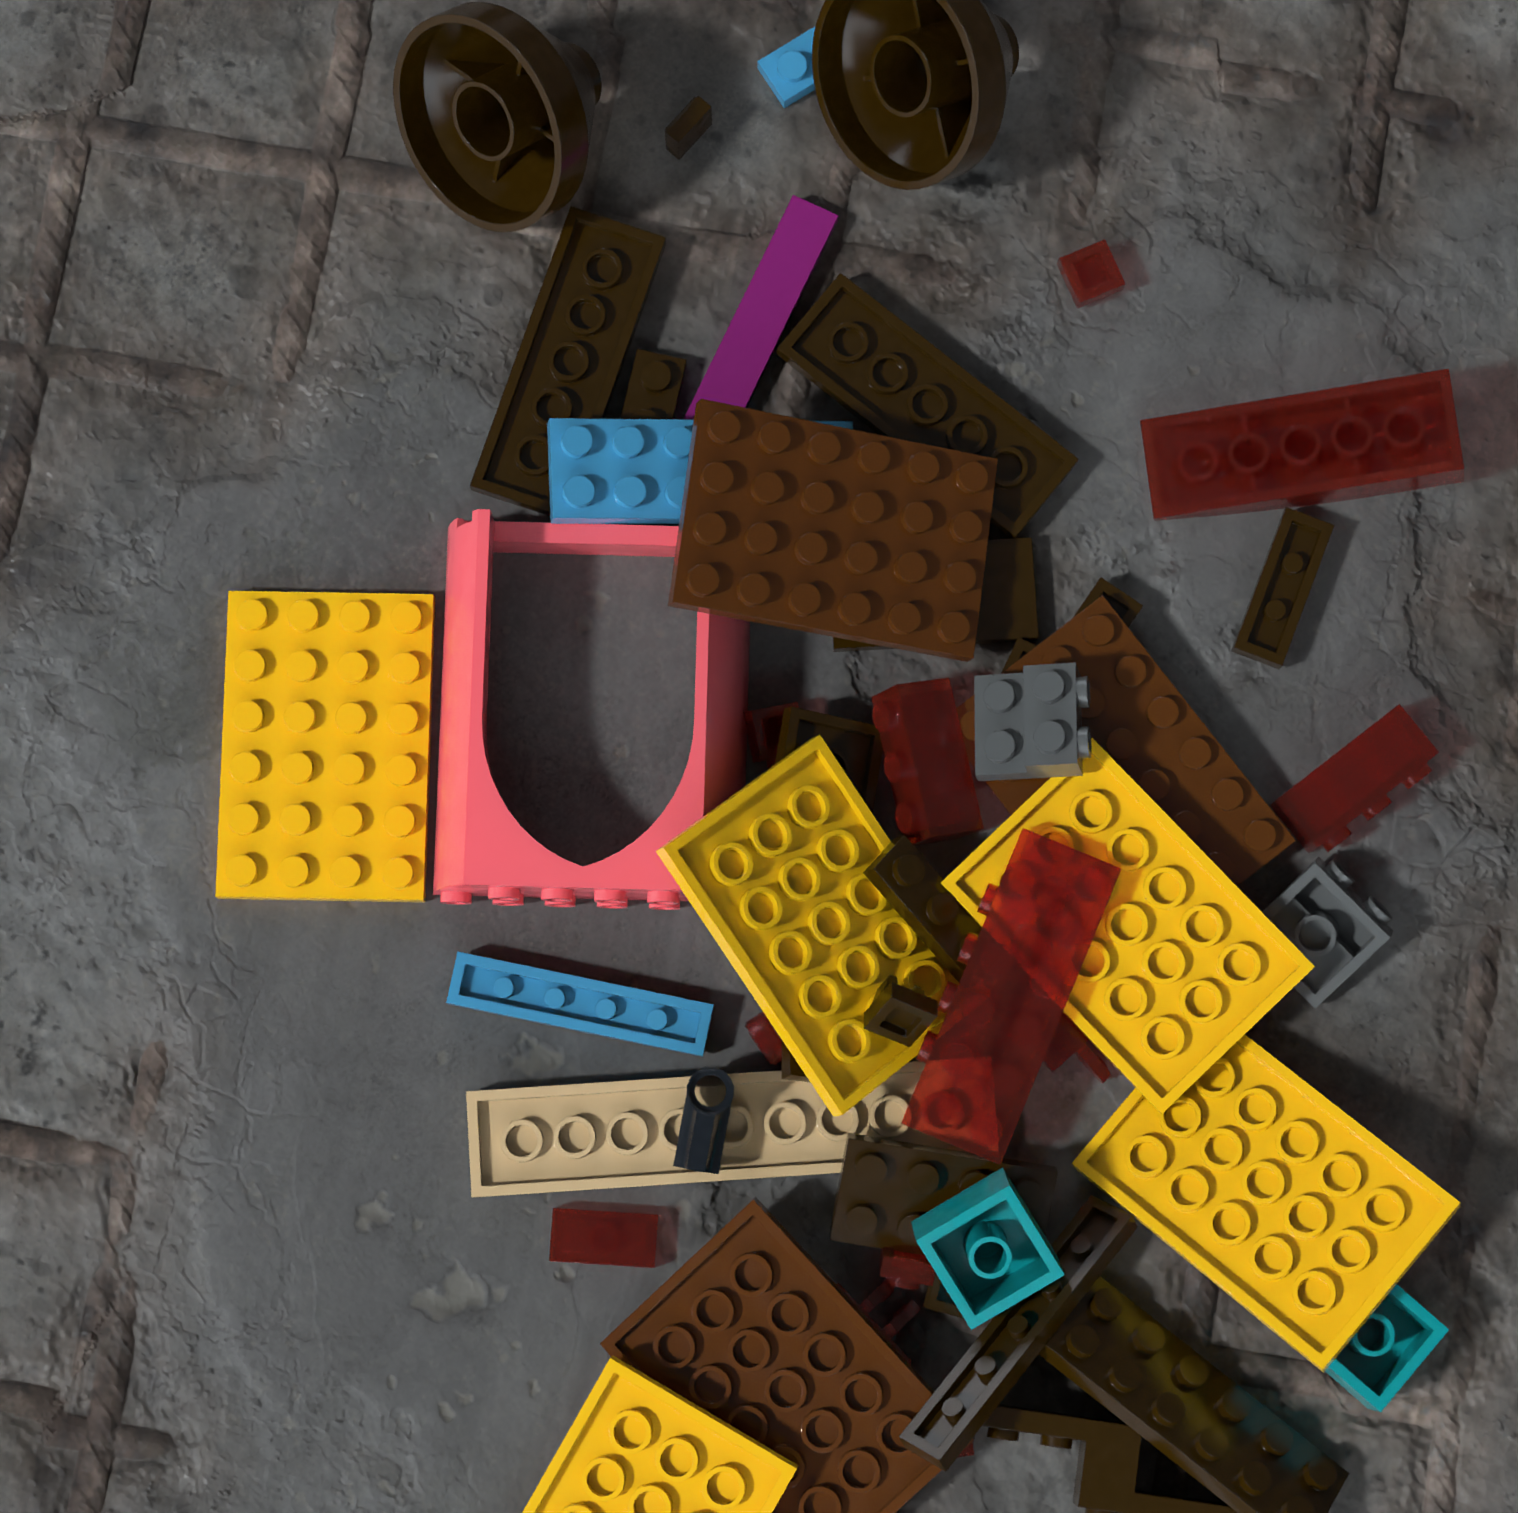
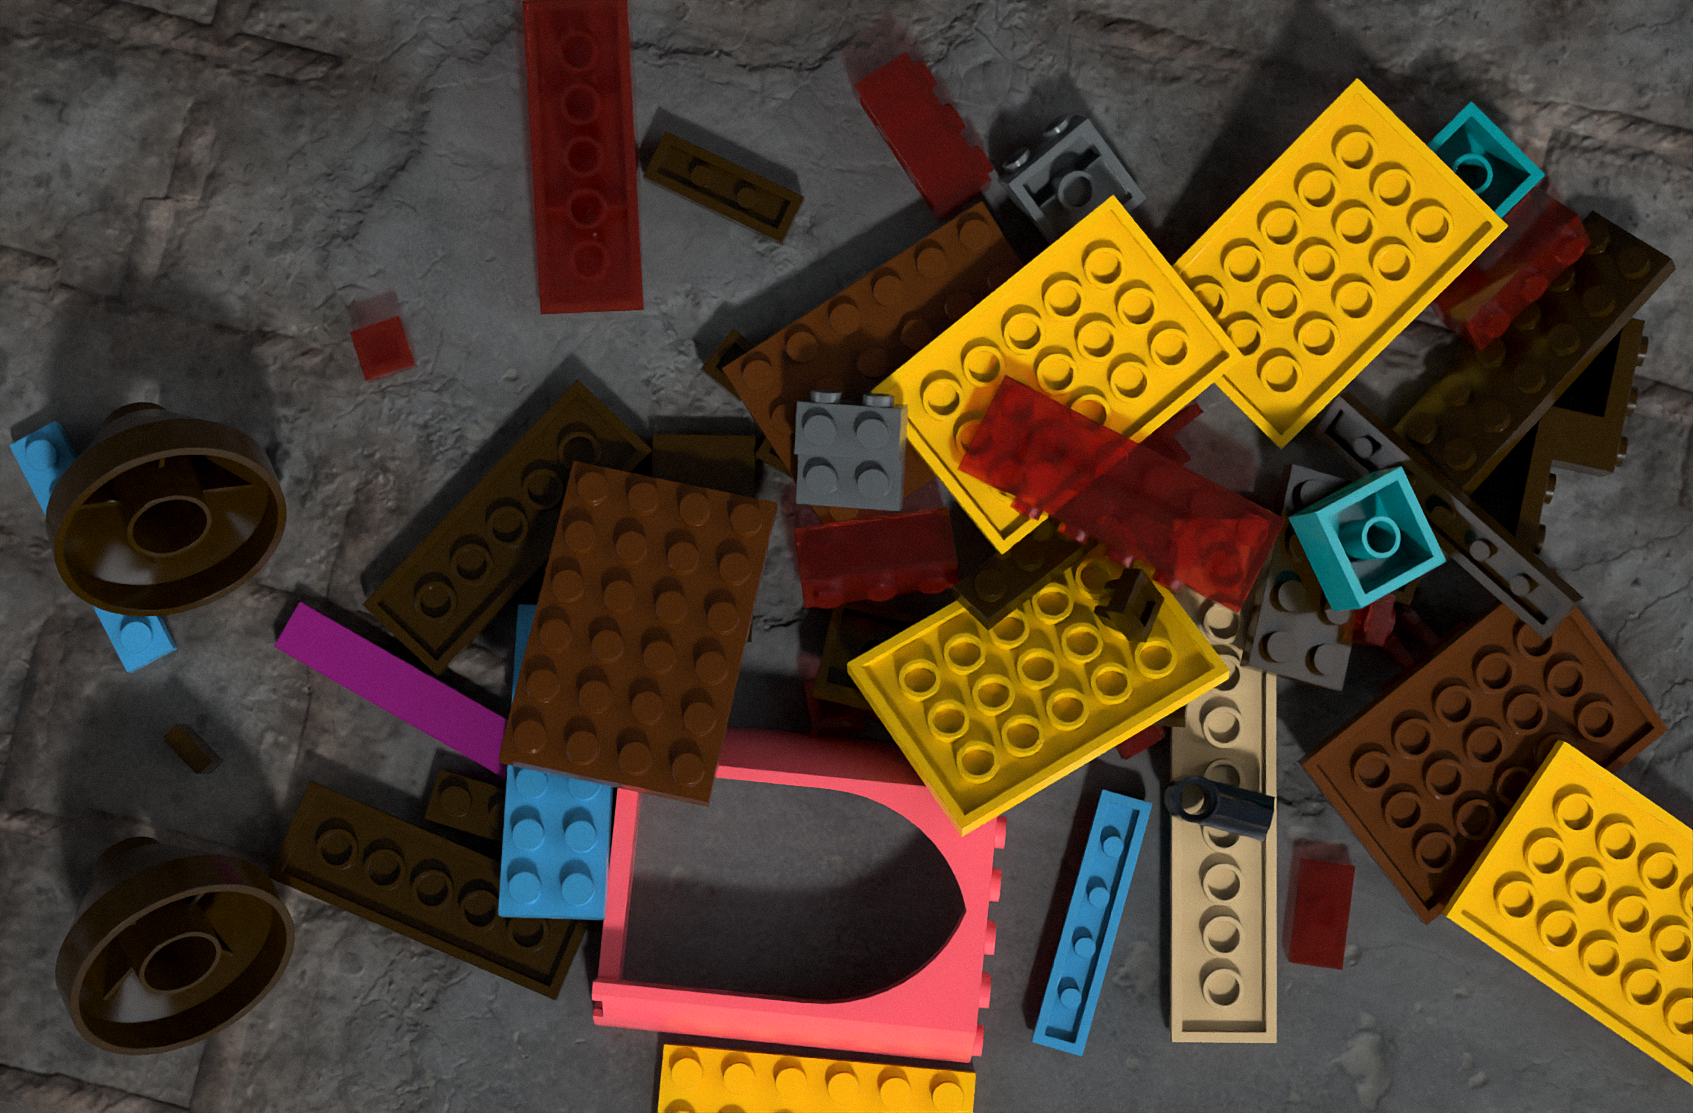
camera: 80 degrees left, 5 degrees up
(1280, 1386) = (1513, 269): none -> clear red brick

